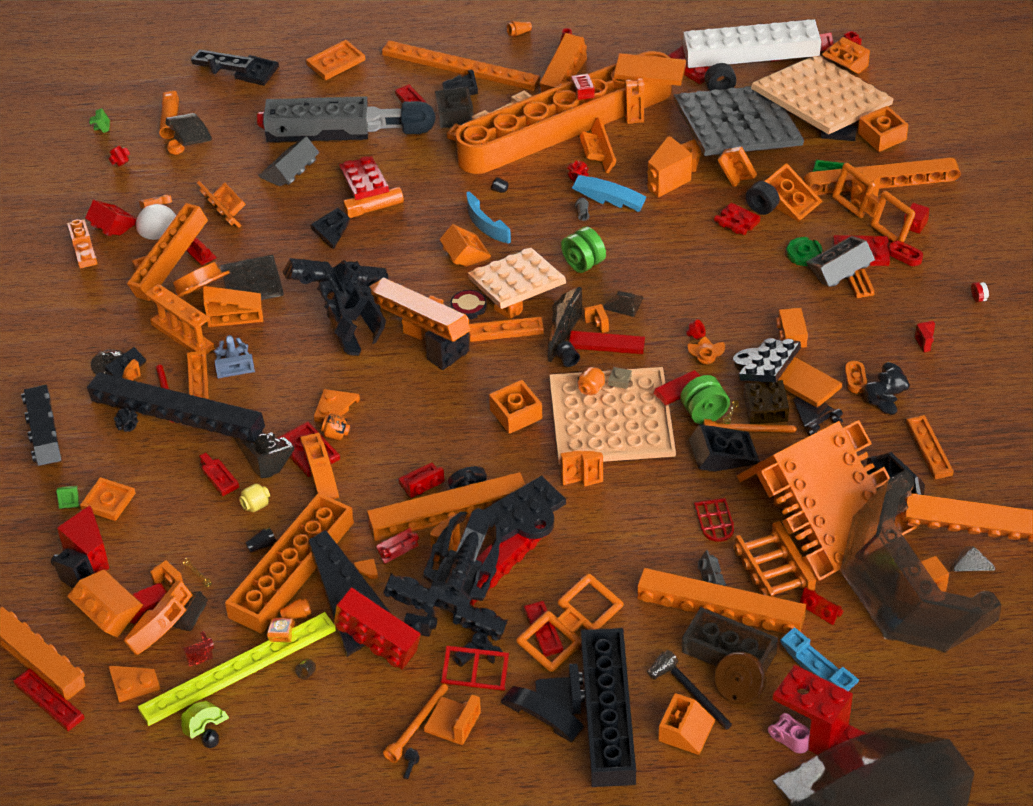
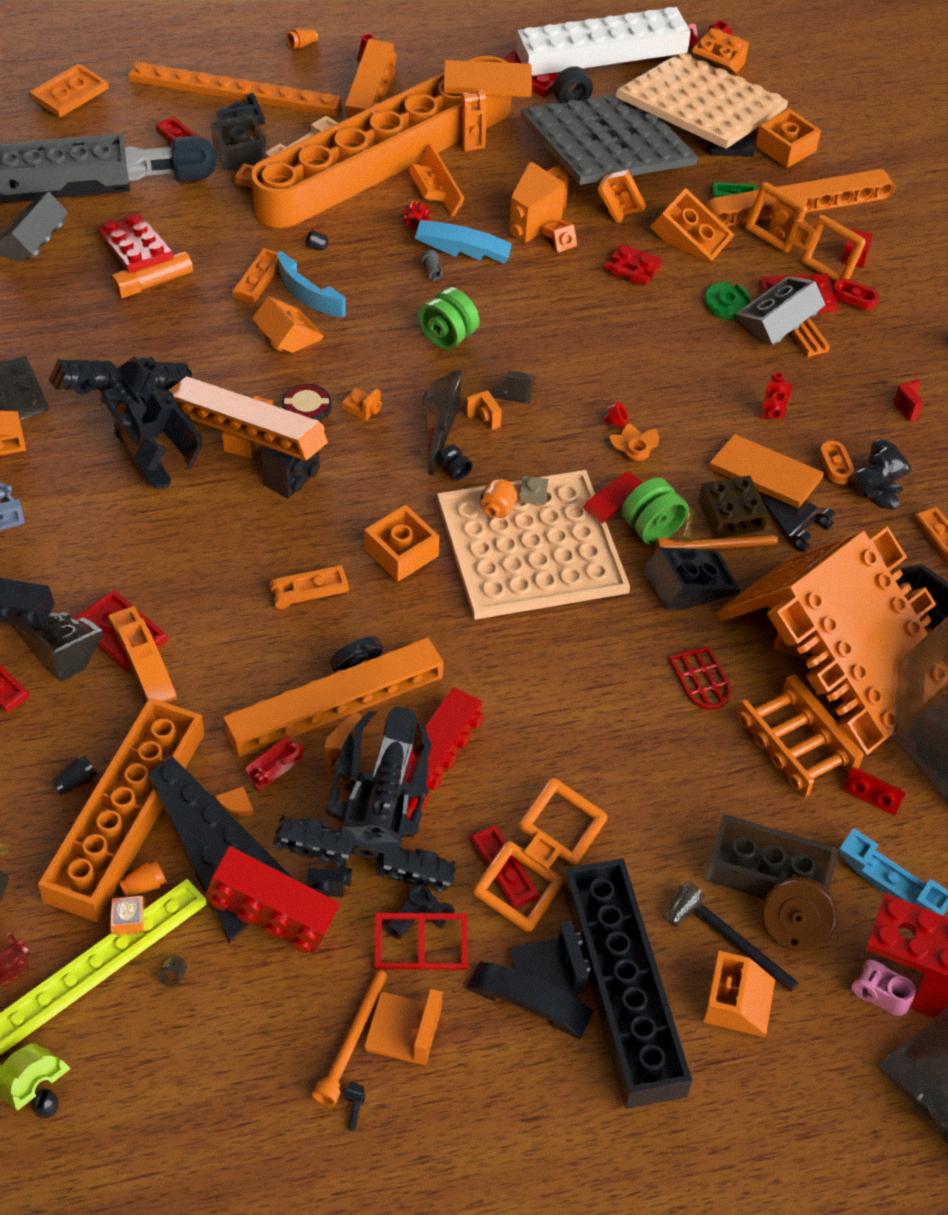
camera: 15 degrees left, 5 degrees up
(254, 498) = (54, 711): light yellow head -> none
(331, 226) = (100, 311): black wing -> none
(334, 402) = (145, 562): orange wing -> none
(335, 427) = (154, 594): orange head -> none
(422, 479) = (291, 661): red bracket -> none
(444, 431) = (308, 586): none -> orange plate
(450, 209) = (257, 276): none -> orange tile
(506, 329) = (368, 433): orange tile -> none
(516, 278) = (365, 363): light nougat plate -> none
(526, 509) = (450, 692): black plate -> none
(581, 466) = (511, 621): orange slope -> none
(583, 87) = (407, 105): slope -> none
(607, 342) = (503, 441): red tile -> none
(686, 192) = (562, 234): none -> orange bracket
(709, 568) = (713, 755): dark grey hinge -> none
(733, 603) = (744, 798): orange brick -> none
(757, 203) = (669, 226): black tyre -> none
(767, 361) = (720, 451): plate -> none
(792, 325) = (740, 403): orange brick -> none
(818, 326) = (776, 397): none -> red hinge

